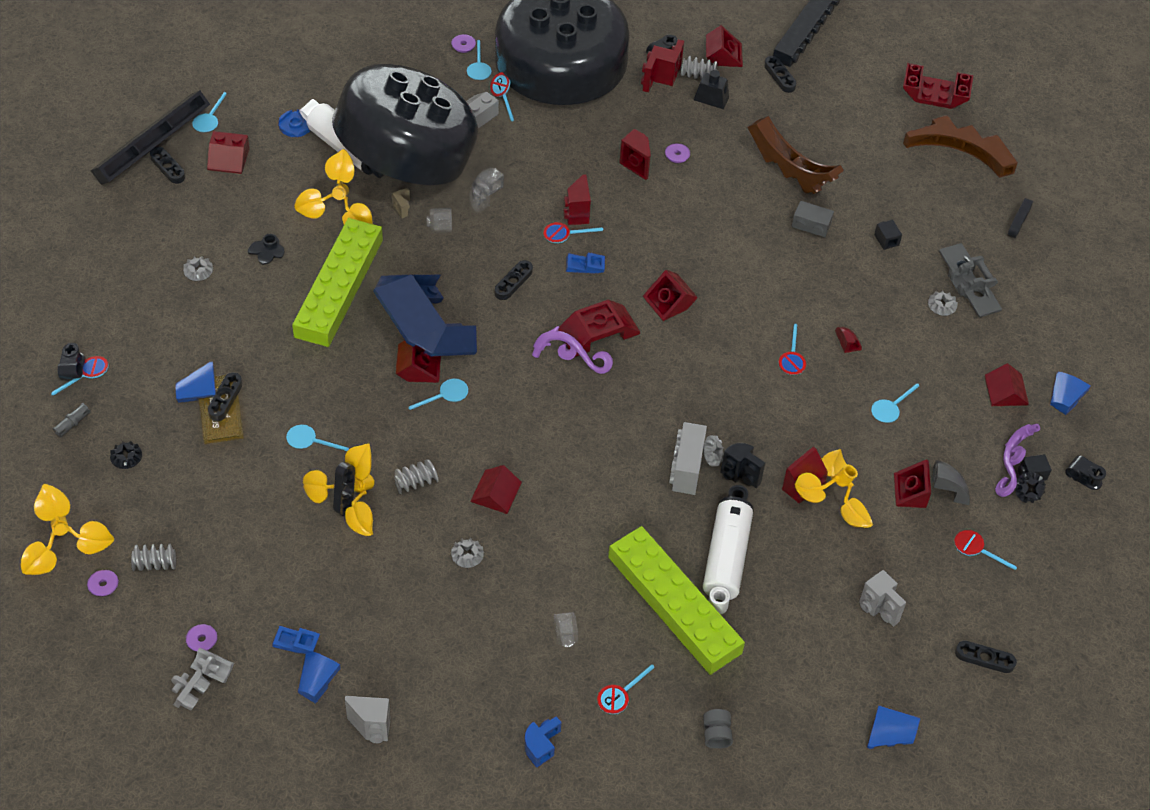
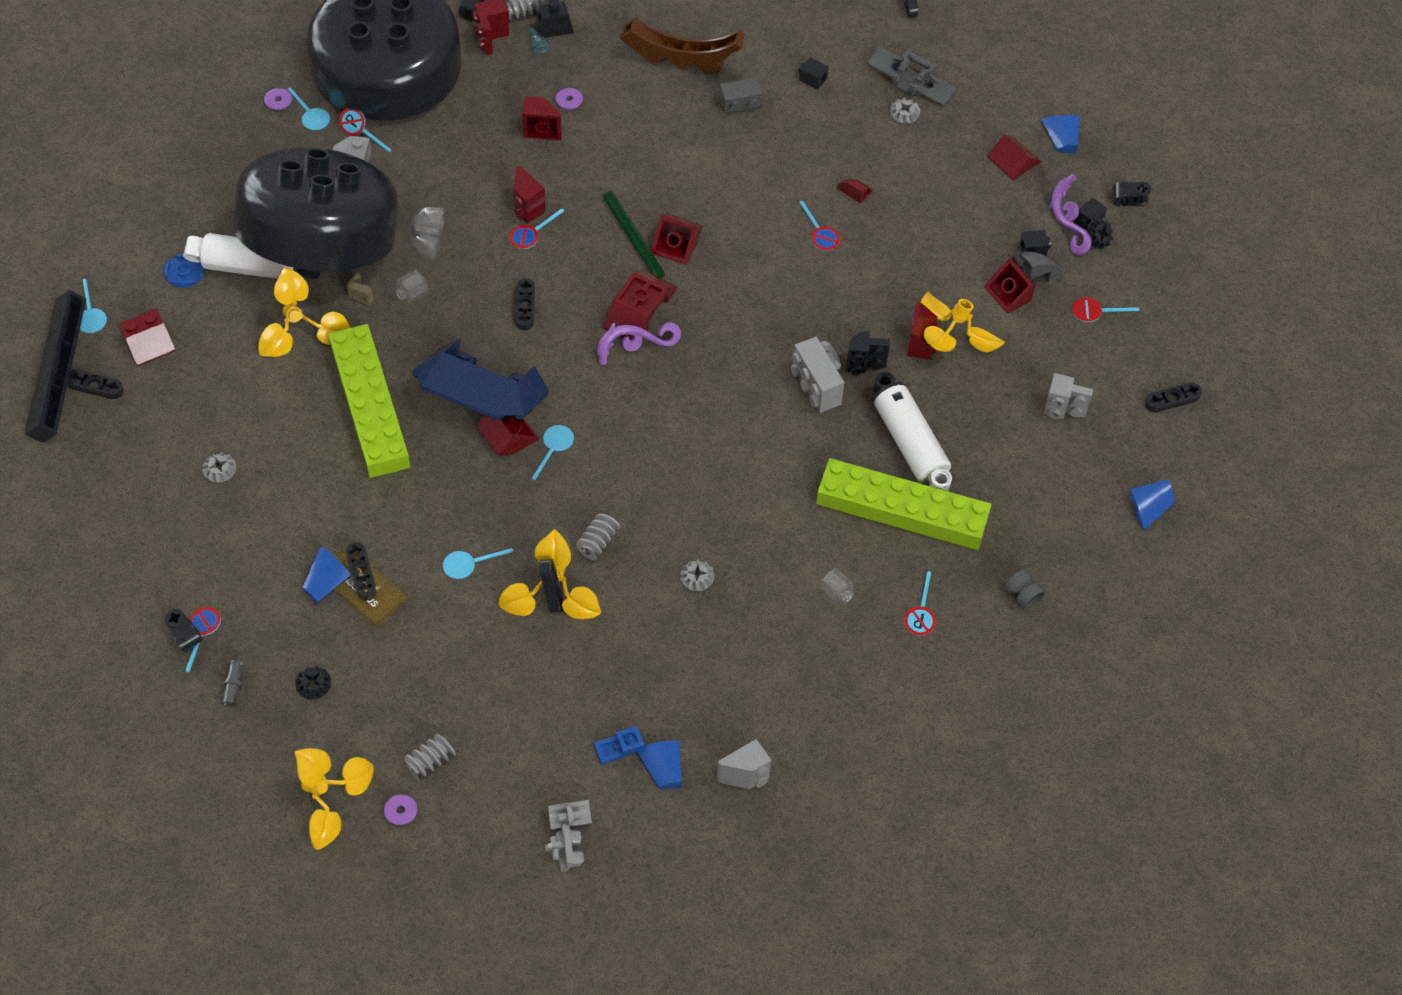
camera: 35 degrees left, 5 degrees up
(201, 631) = (531, 790): medium lavender piece -> none
(267, 249) = (271, 411): black plate -> none
(497, 489) = (674, 503): dark red slope -> none
(537, 741) = (893, 697): blue brick -> none
(590, 264) = (579, 249): blue slope -> none
(640, 276) = (633, 234): none -> dark green axle
(688, 102) = (539, 44): none -> clear light blue cone
(888, 411) = (934, 234): medium azure piece -> none
(966, 463) = (1035, 242): none -> black brick

